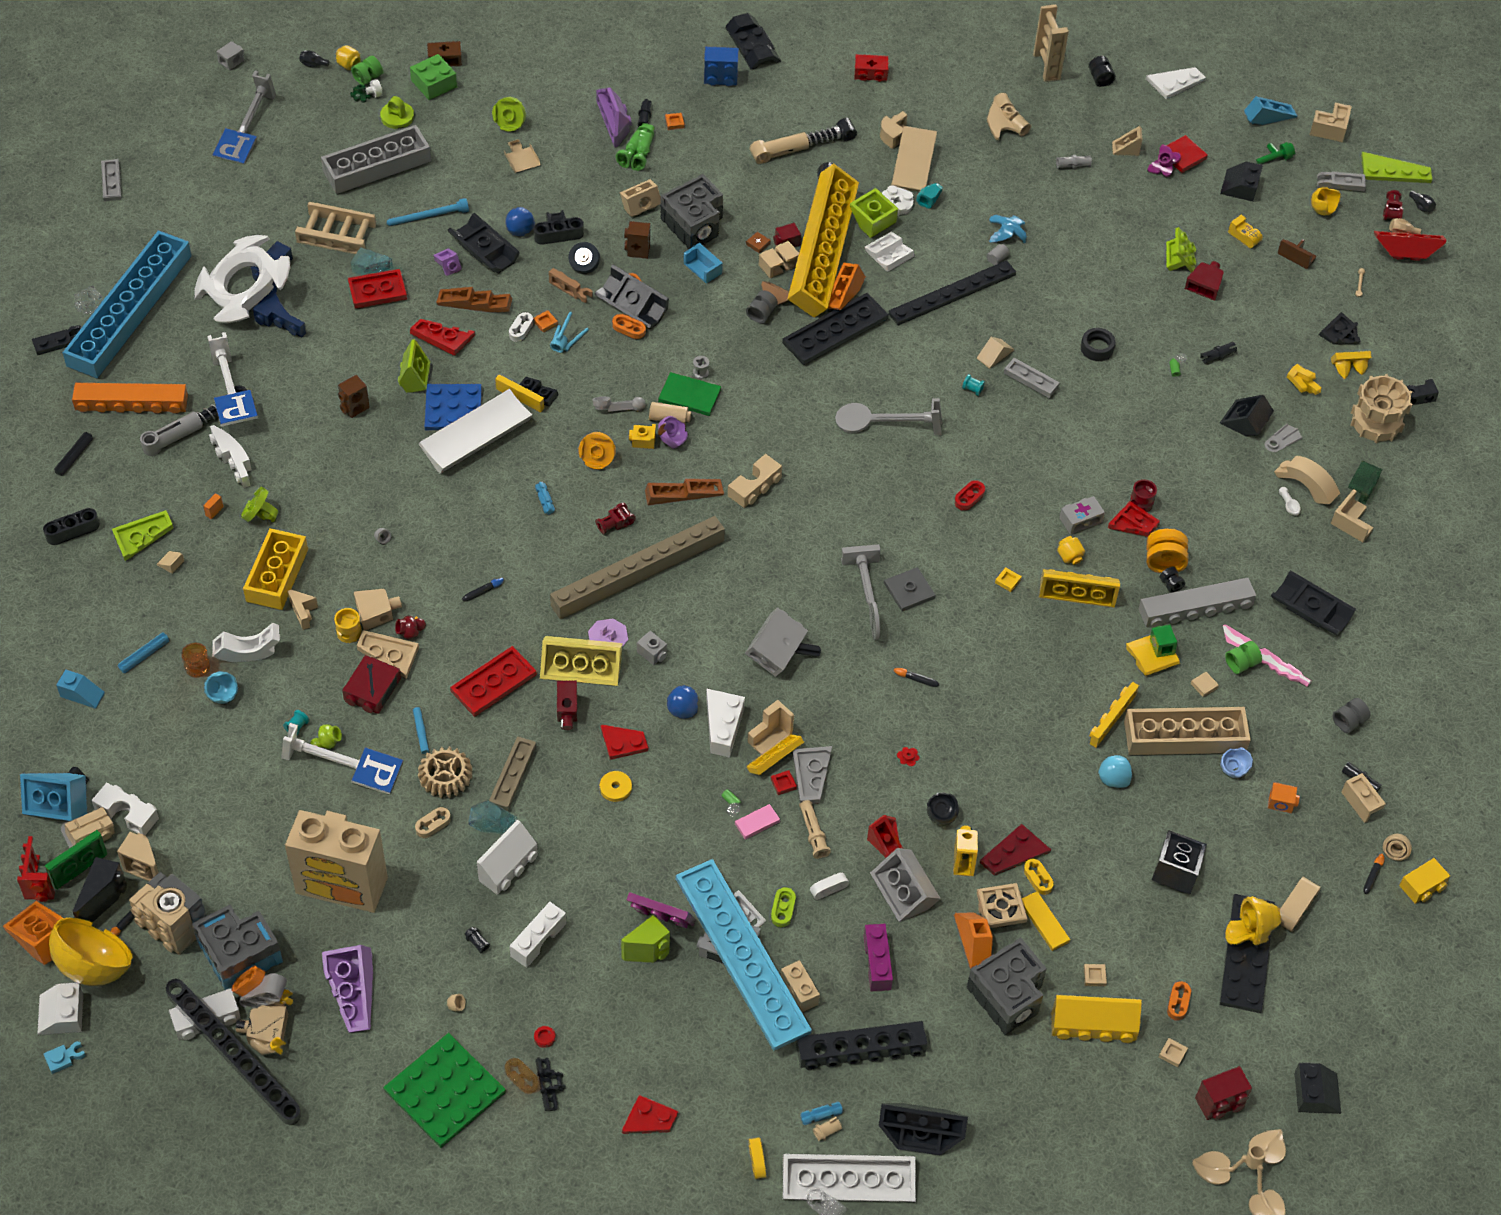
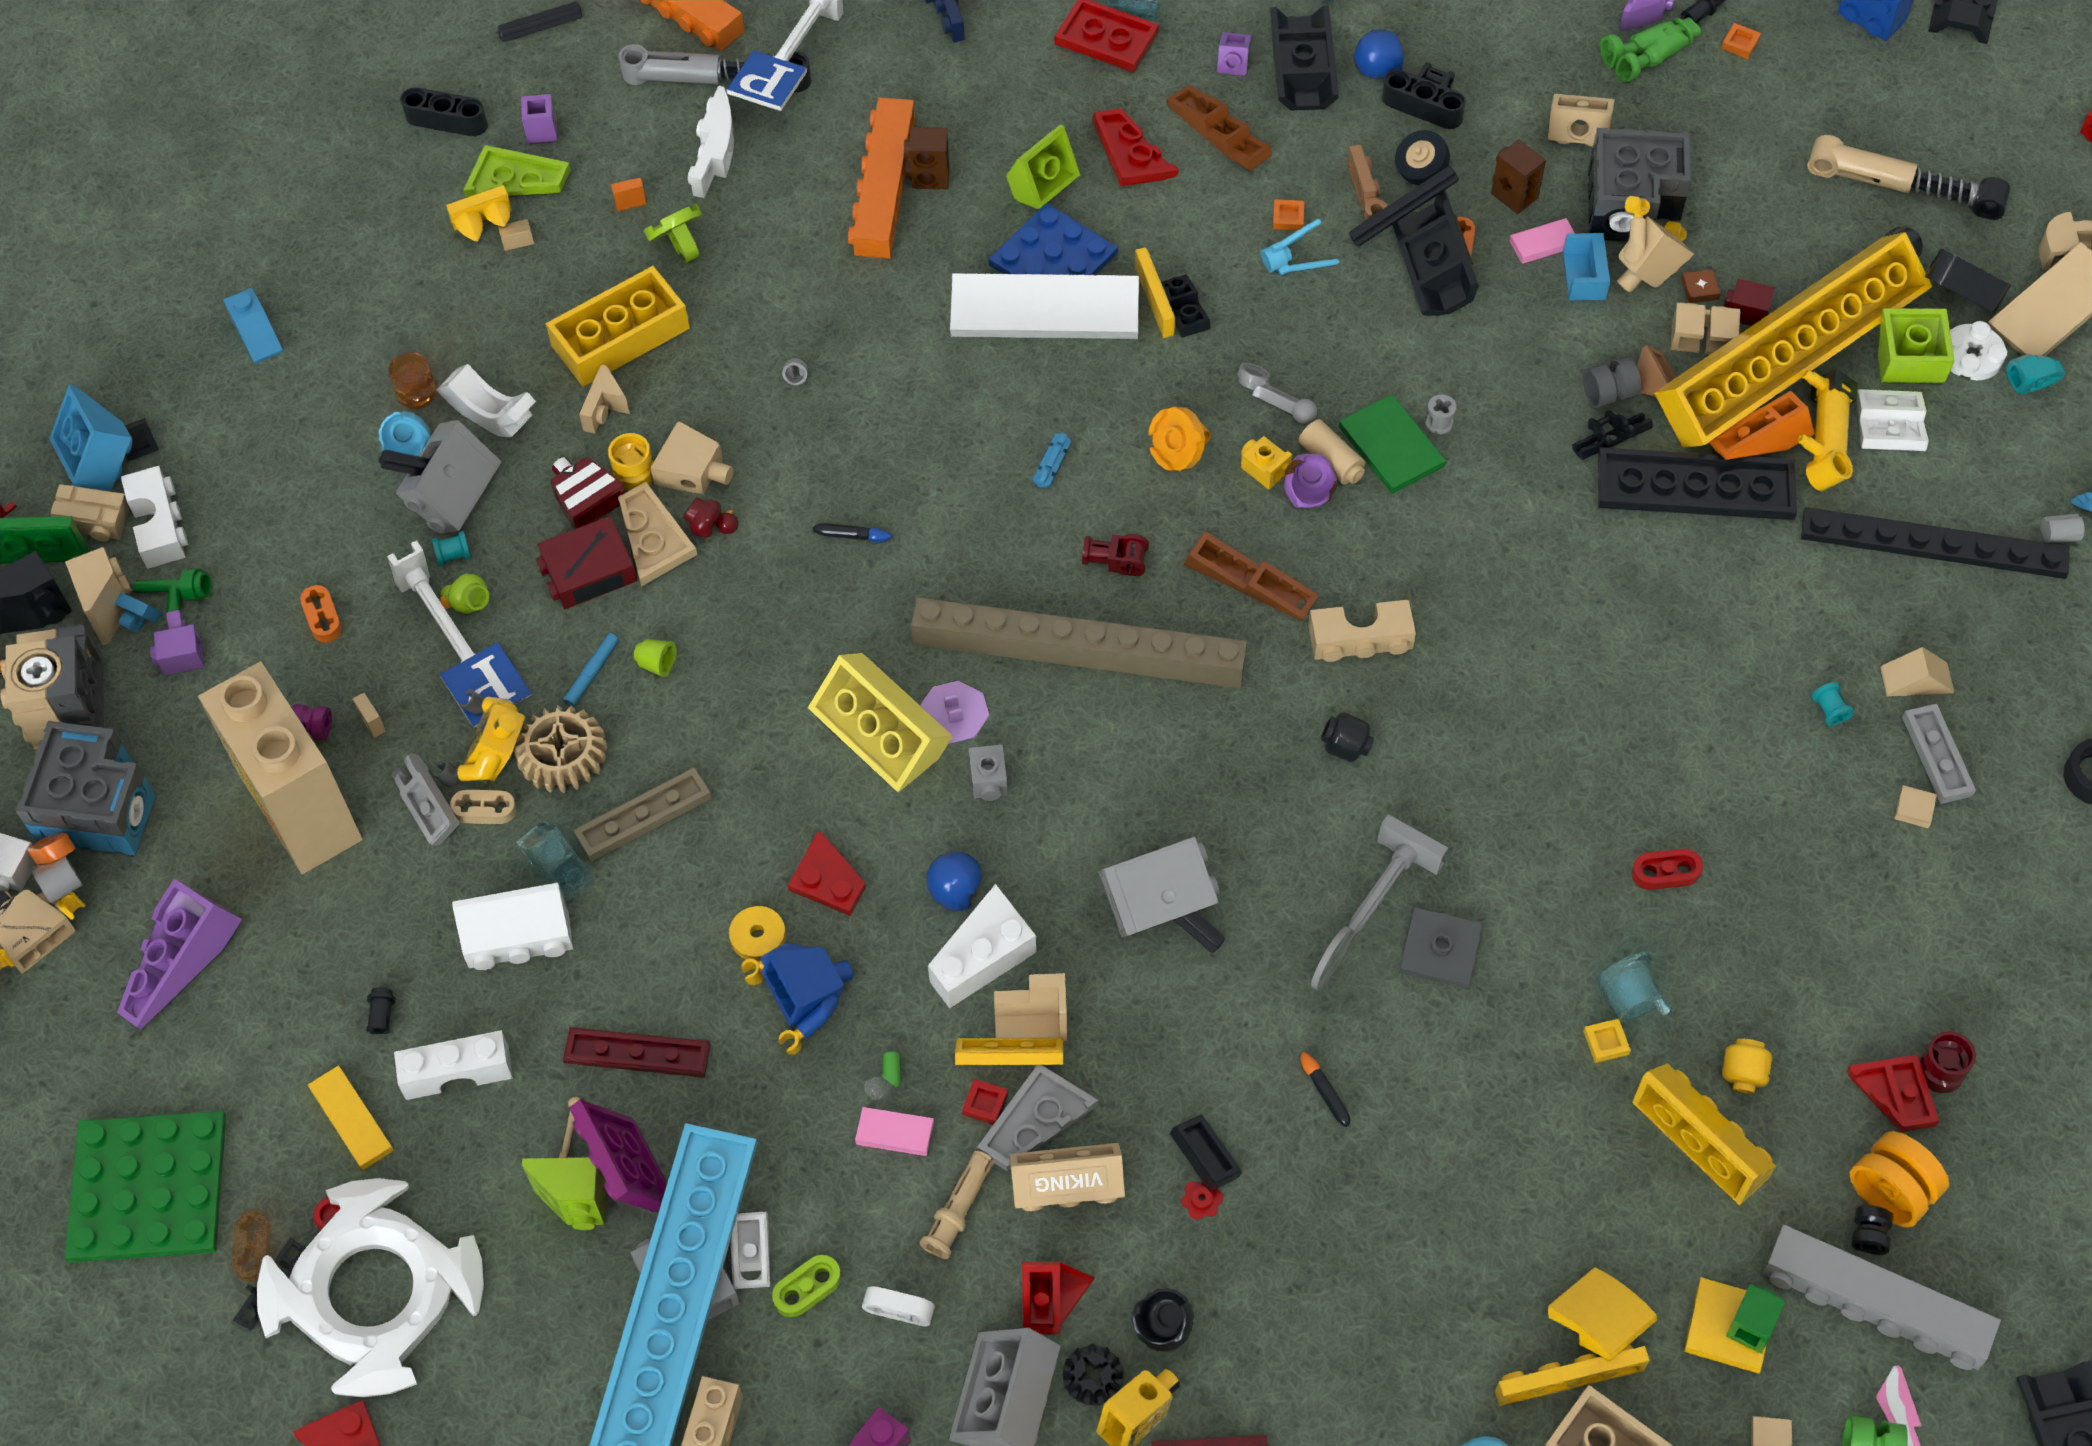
camera: 45 degrees right, 5 degrees up
(129, 498) = (539, 118): none -> medium lavender brick
(138, 566) = (469, 212): none -> yellow tile
(143, 652) = (371, 329): dark azure axle -> none
(164, 855) = (136, 613): none -> dark azure tile
(182, 825) = (193, 585): none -> green piece
(204, 858) = (178, 647): none -> medium lavender brick
(258, 797) = (327, 611): none -> orange beam
(265, 689) = (445, 476): none -> light grey piece
(336, 420) = (883, 178): none -> orange brick
(336, 654) = (585, 490): none -> dark red torso
(405, 838) = (425, 800): none -> light grey hinge
(411, 788) = (491, 743): none -> yellow torso
(447, 703) = (656, 656): none -> lime hat
(456, 1002) = (278, 1078): tan hinge -> none
(493, 681) = (741, 668): red plate -> none
(510, 992) = (350, 1117): none -> yellow tile
(524, 328) = (1247, 202): white beam -> none
(567, 703) = (796, 768): dark red torso -> none
(600, 284) = (1404, 206): none -> black axle
(606, 913) = (569, 1131): none -> tan hinge
(612, 872) = (637, 1052): none -> dark red tile
(617, 1022) = (359, 1227): none -> white piece
(629, 326) = (1397, 294): orange plate -> none
(660, 789) = (803, 986): none -> blue torso
(671, 263) = (1541, 240): none -> bright pink tile
(729, 237) = (1652, 250): none -> tan torso
(782, 325) = (1619, 424): none -> black piece
(791, 529) = (1347, 737): none -> black head
(849, 784) = (1067, 1176): none -> tan brick
(857, 417) = (1606, 634): light grey piece -> none
(860, 254) = (1833, 397): none -> yellow piece
(870, 170) = (1967, 280): none -> black piece
(893, 736) = (1205, 1152): none -> black tile
(937, 859) = (1088, 1390): none -> black gear
(1001, 550) = (1631, 988): none -> clear light blue hat
(1041, 405) = (1915, 806): none -> tan tile
(1081, 515) = (1817, 1022): light grey brick -> none
(1104, 681) = (1602, 1313): none -> yellow slope

